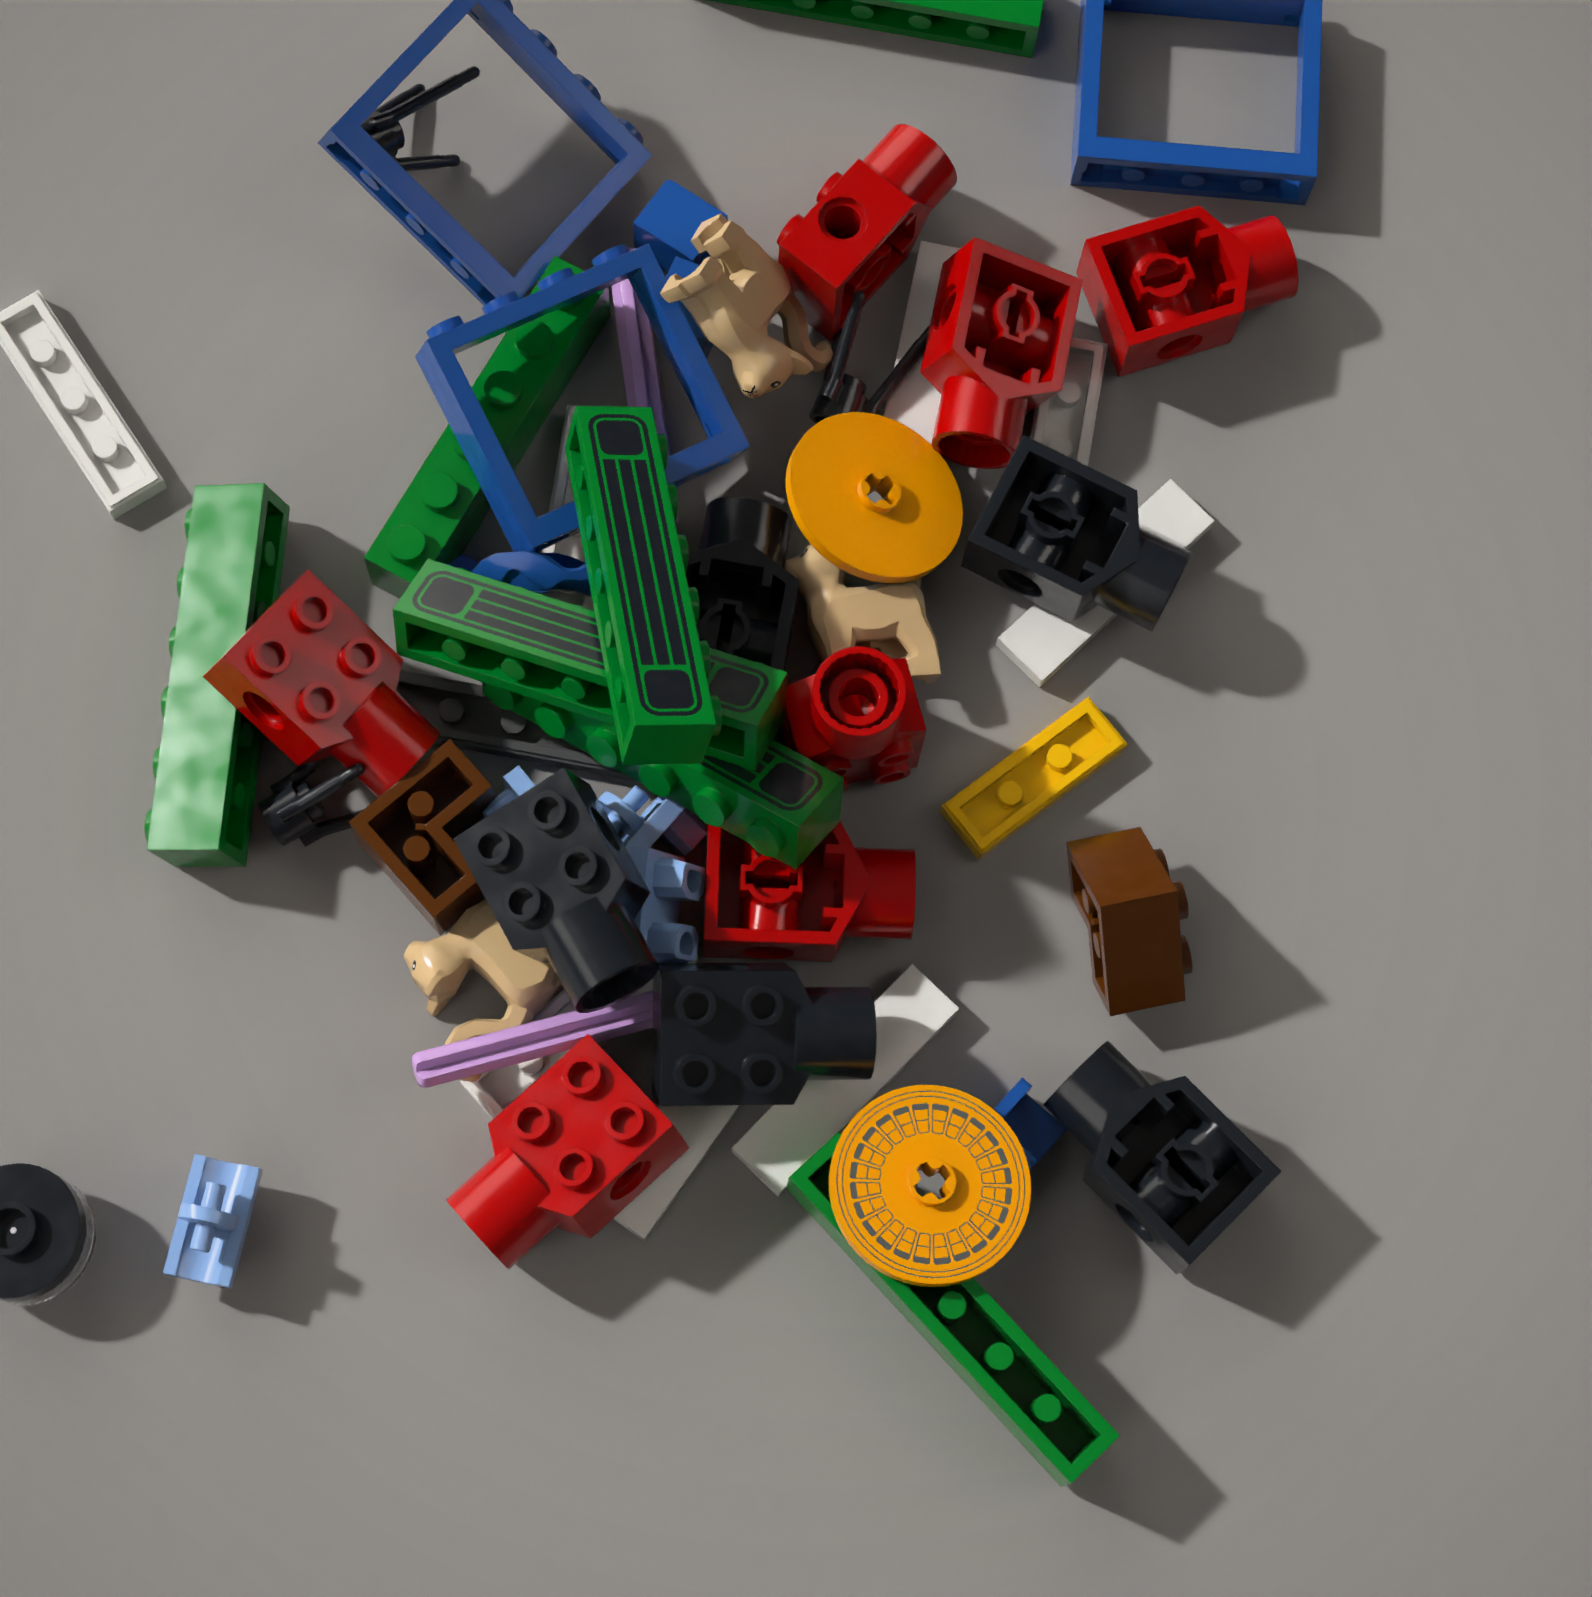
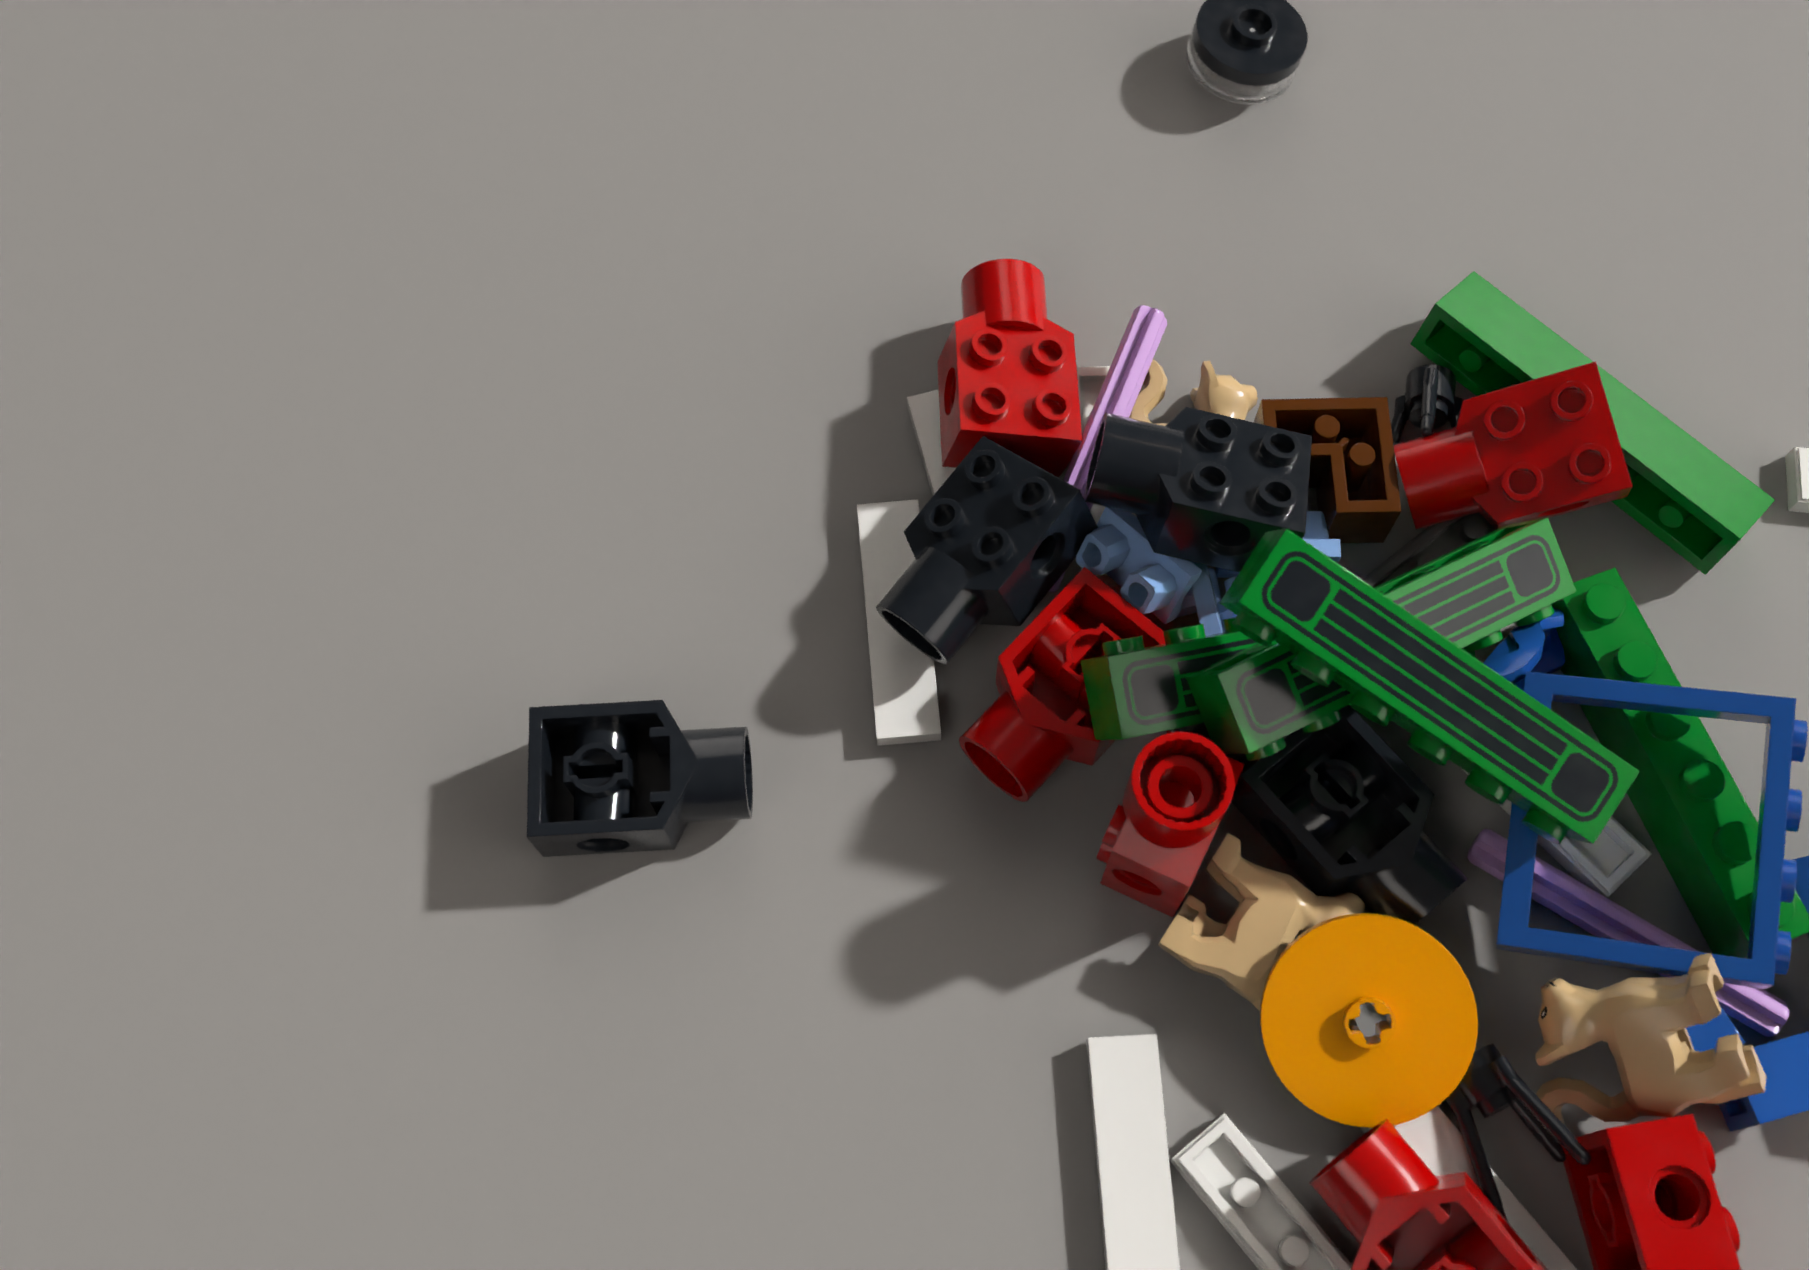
camera: 140 degrees right, 5 degrees down
(212, 1221) = (1158, 147): light blue hips -> none
(919, 1236) = (790, 611): light orange piece -> none
(981, 1348) = (664, 537): green brick -> none
(1030, 1122) = (747, 695): blue panel -> none
(1033, 778) = (1011, 965): yellow tile -> none
(1072, 540) = (1189, 1155): black brick -> none
(1130, 920) = (828, 912): reddish brown brick -> none

